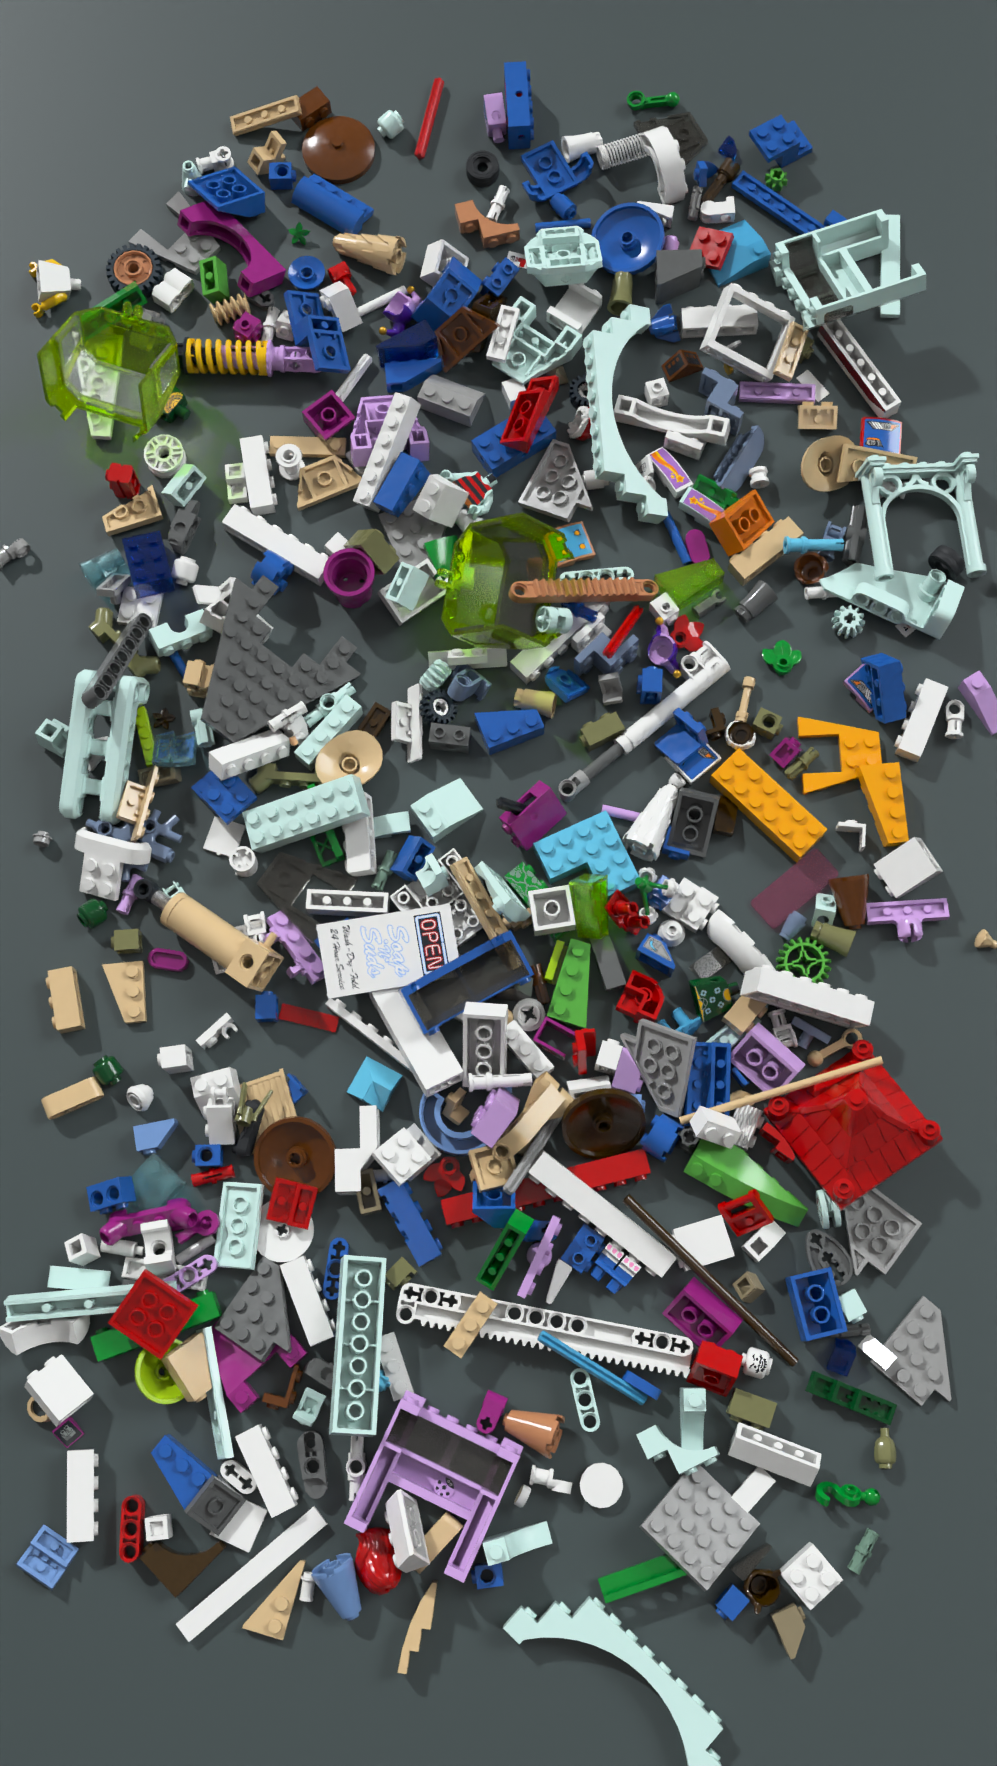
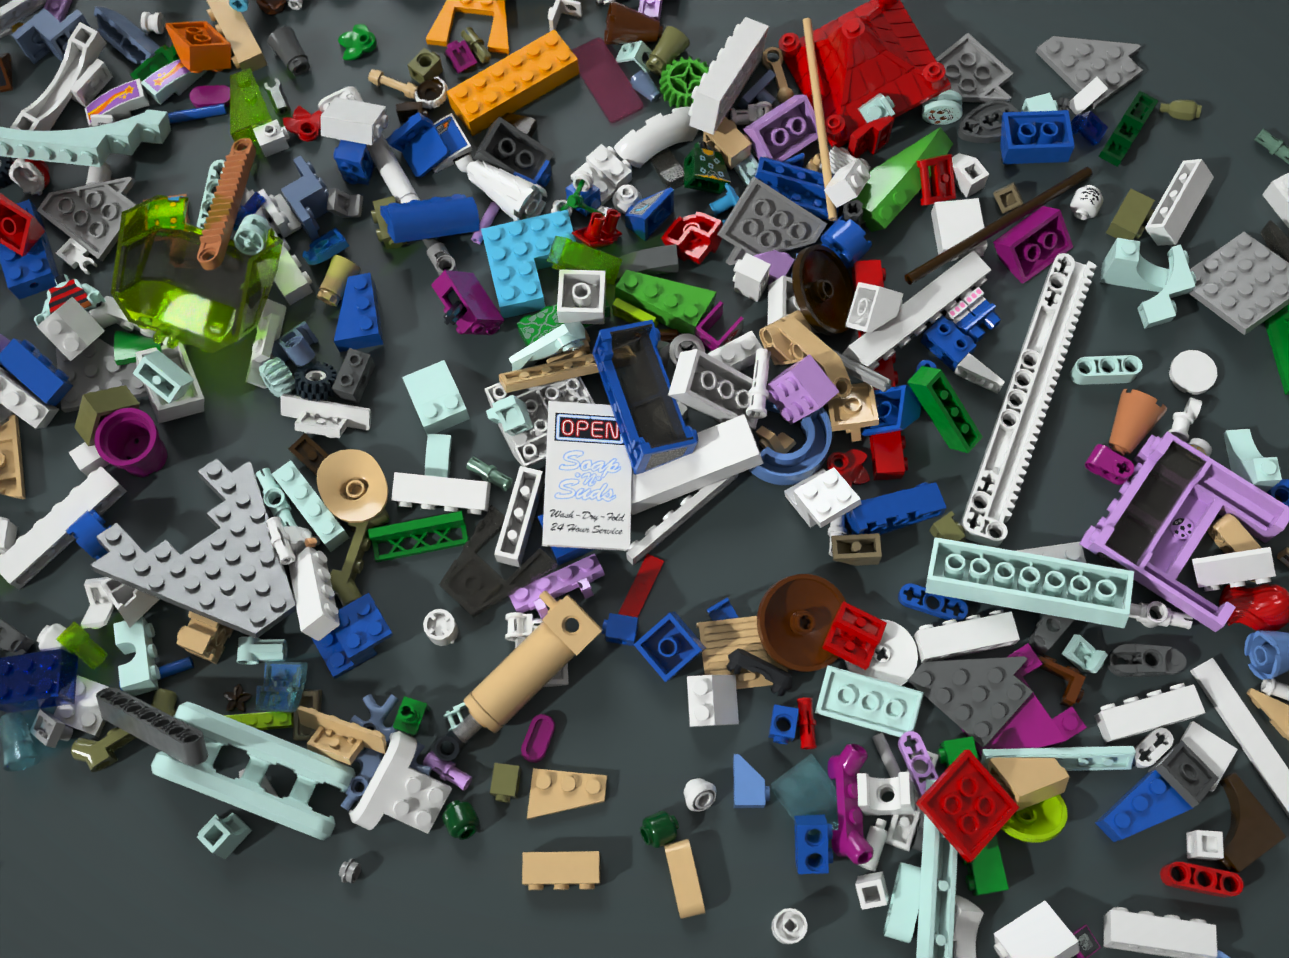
camera: 80 degrees left, 5 degrees down
(45, 1187) = (789, 926): none -> white wheel
(166, 854) = (410, 715): none -> green bracket
(175, 1059) = (663, 741): white brick -> none
(182, 590) = (78, 641): none -> clear neon green piece
(206, 1225) = (865, 736): magenta piece -> none
(210, 1036) = (643, 700): white plate -> none
(220, 1118) = (744, 698): white brick -> none
(223, 838) = (404, 649): white piece -> none
(244, 1114) = (747, 666): olive plant -> none
(255, 1049) = (669, 646): none -> blue brick
(306, 813) = (403, 540): light aqua brick -> none
(351, 1161) = (823, 557): white piece -> none
(374, 1083) = (732, 526): medium azure slope -> none
(412, 858) = (484, 438): blue brick -> none
(470, 1325) = (1018, 463): tan plate -> none
(517, 482) = (75, 255): none -> white plate
(539, 1256) = (962, 384): lavender plate -> none
(582, 1048) = (739, 300): red bracket -> none
(590, 1169) = (873, 307): none -> white slope
(592, 1367) = (1076, 352): dark azure axle -> none
(608, 764) = (431, 218): none -> blue brick
(622, 632) = (286, 171): red axle -> none
(641, 1384) = (1096, 313): blue beam -> none
(656, 393) = (20, 96): white brick -> none
(664, 649) = (312, 145): lavender piece -> none
(683, 675) = (353, 121): none -> white brick
(714, 1368) = (1089, 237): red slope -> none
(753, 1489) = (1208, 232): white tile -> none
(800, 1142) = (877, 108): none -> light aqua bracket
(847, 1494) = (1222, 148): green piece -> none

